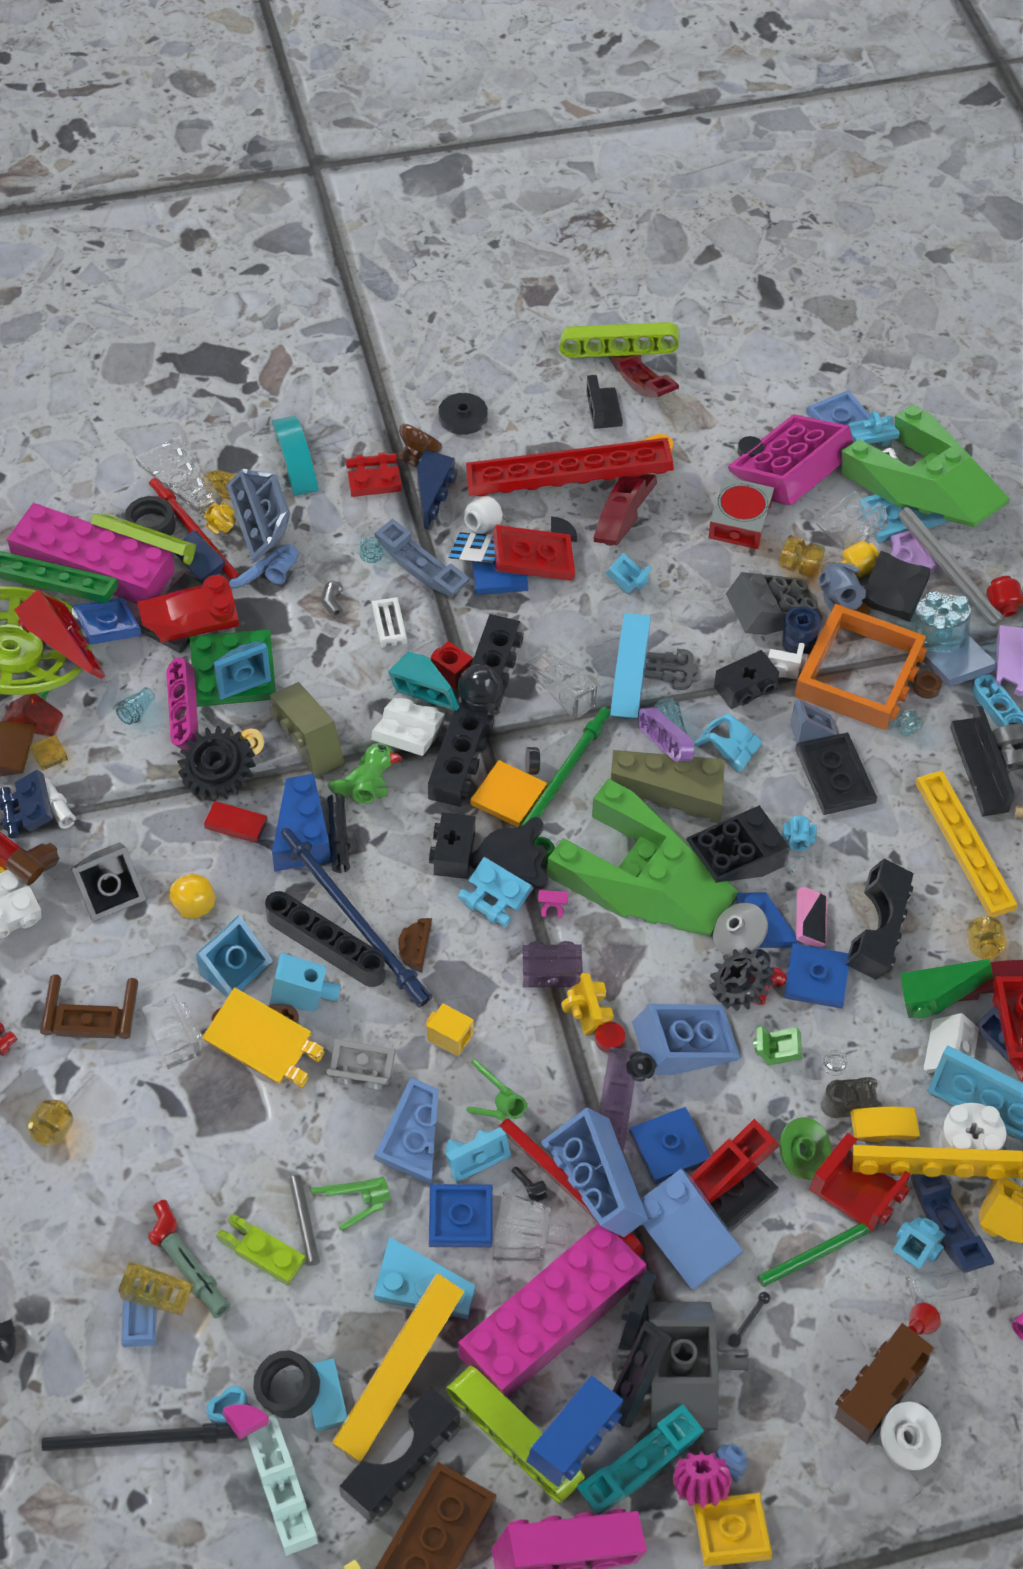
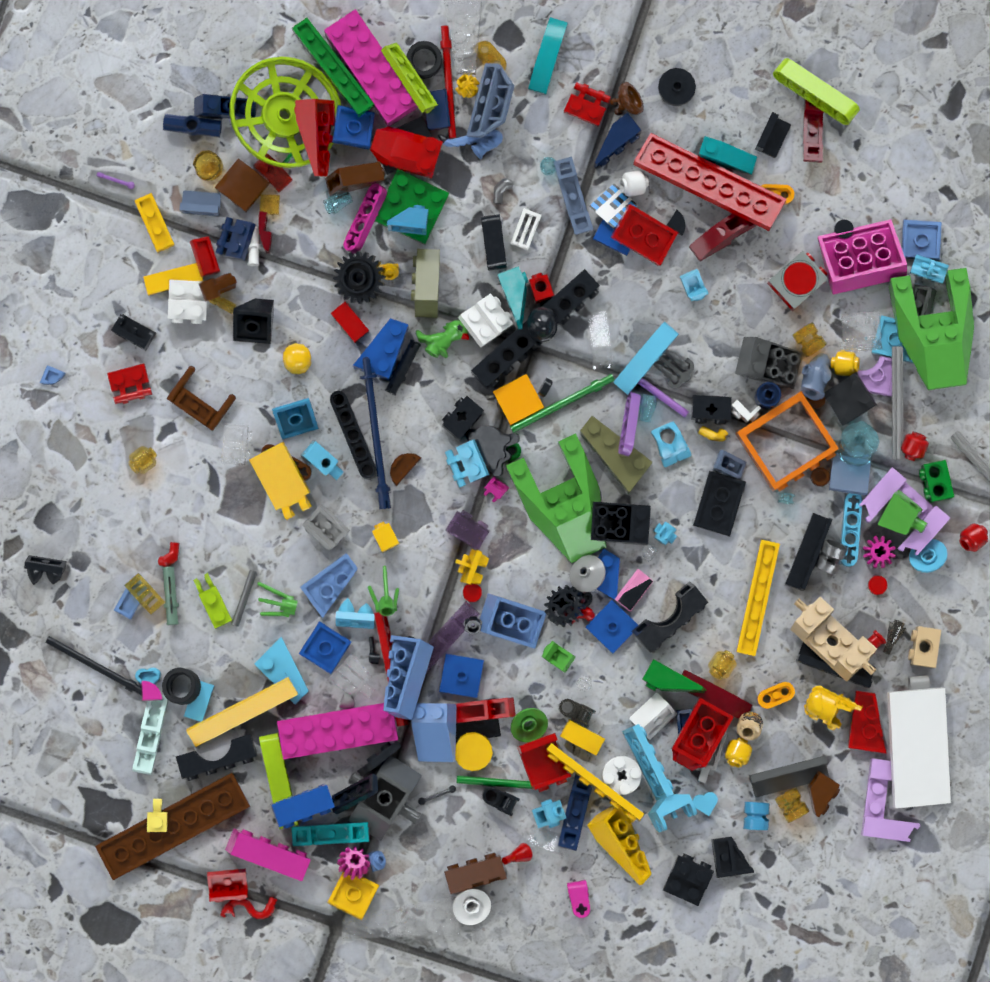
camera: 30 degrees right, 30 degrees up
(54, 886) = (223, 304): none -> clear yellow axle
(62, 781) = (265, 236): none -> dark red slope
(139, 666) = (354, 178): none -> reddish brown slope
(360, 649) = (493, 242): none -> black beam
(536, 1264) = (347, 701): none -> light grey hinge
(562, 437) = (727, 155): none -> teal slope
(687, 702) = (663, 397): none -> medium lavender bar
(758, 1226) = (473, 751): none -> yellow tile
(777, 704) = (711, 435): none -> yellow arm
(845, 1269) = (501, 800): none -> black piece

